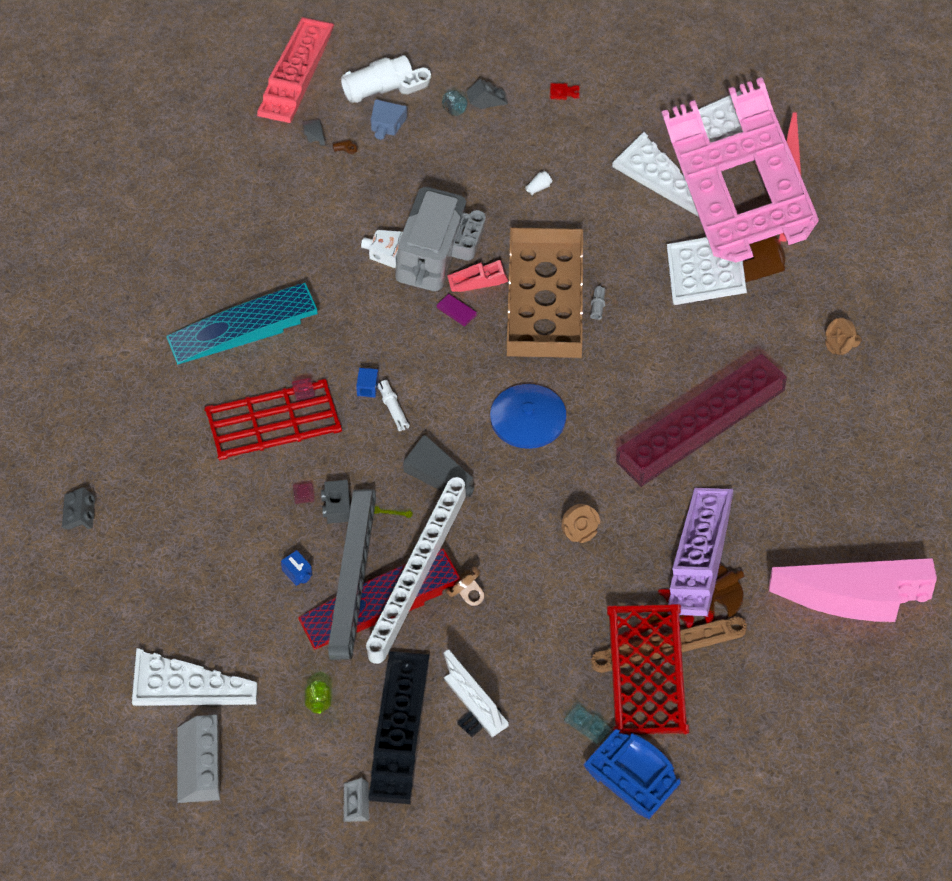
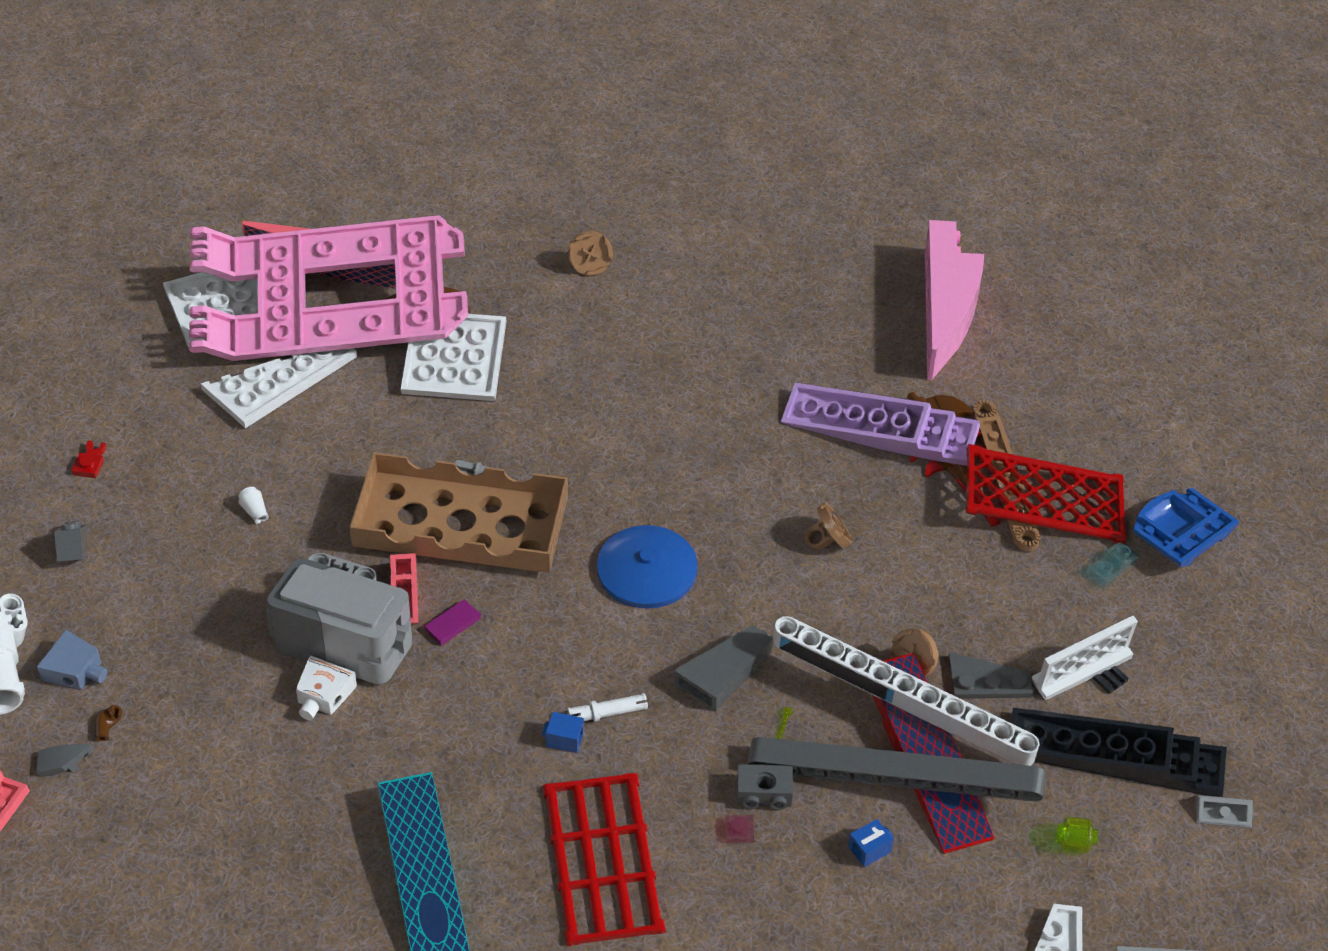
camera: 85 degrees left, 5 degrees down
(303, 389) = (563, 809): clear pink plate -> none
(454, 103) = (72, 578): clear light blue head -> none
(457, 634) = (983, 679): none -> dark grey wing
(700, 420) = (692, 395): clear pink brick -> none

